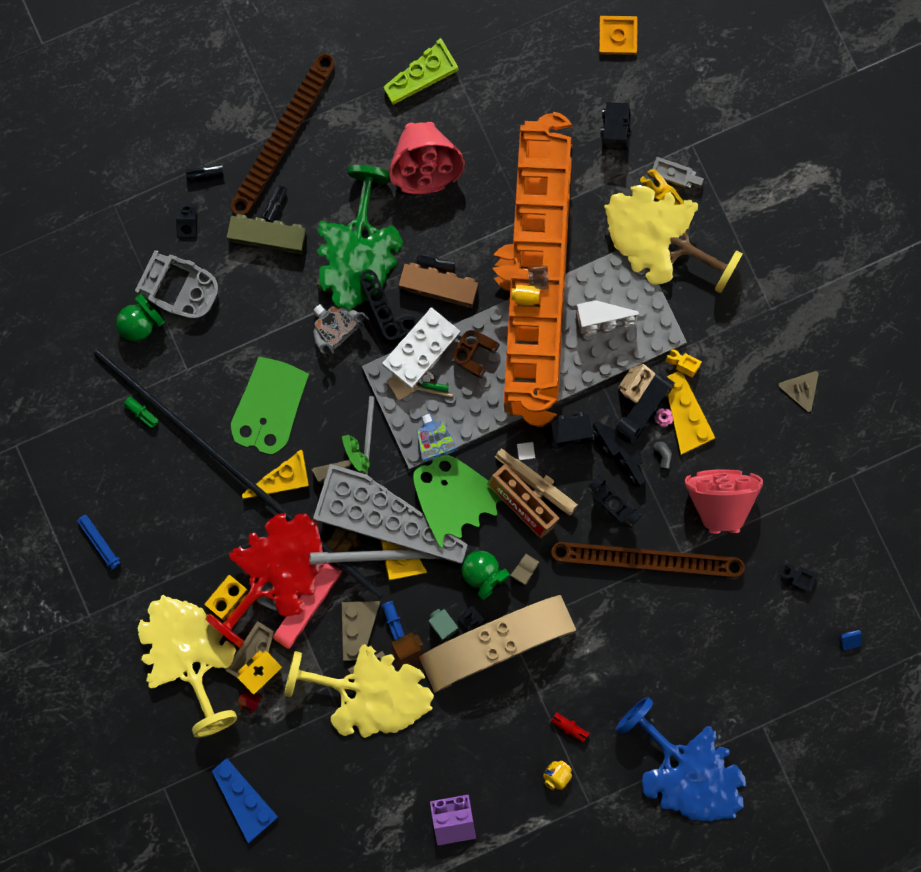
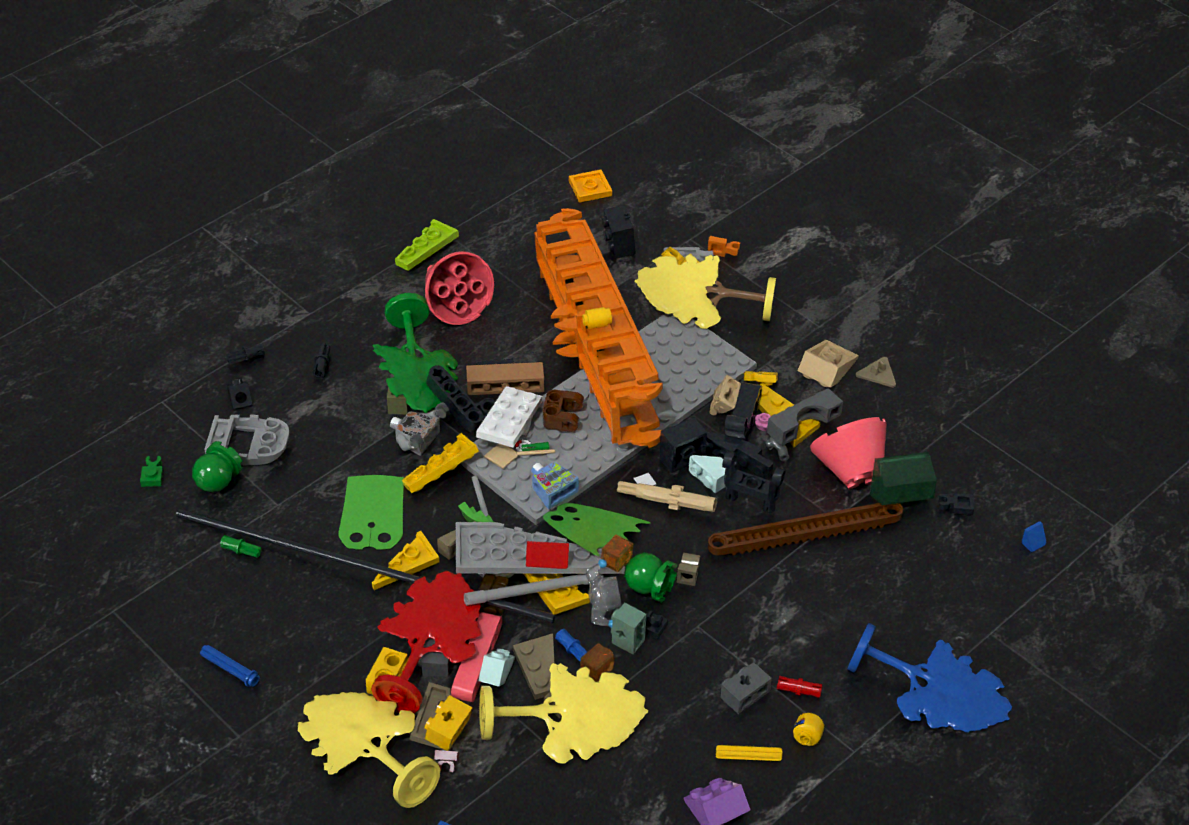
camera: 25 degrees left, 35 degrees down
(84, 297) = (152, 473): none -> green plate
(266, 234) = (323, 382): olive brick -> none
(283, 134) = (311, 315): reddish brown gear -> none
(320, 622) = (496, 667): none -> light aqua slope
(353, 373) = (438, 464): none -> yellow wing
(395, 534) = (547, 555): none -> red slope
(435, 580) = (602, 594): none -> clear piece
(458, 550) = (617, 553): none -> clear orange brick
(496, 642) = (681, 627): tan slope -> none
(500, 778) = (749, 753): none -> yellow axle
(523, 501) = (661, 511): medium nougat brick -> none
(533, 716) = (745, 687): none -> dark grey brick
(538, 277) = (602, 300): clear smoke slope -> none
(588, 465) = (708, 470): none -> light aqua slope
(600, 315) = (675, 349): white slope -> none
(714, 171) = (721, 247): none -> orange plate
(722, 428) = (821, 406): none -> dark grey arch
(755, 545) = (903, 478): none -> clear green slope
(756, 364) = (826, 363): none -> tan slope

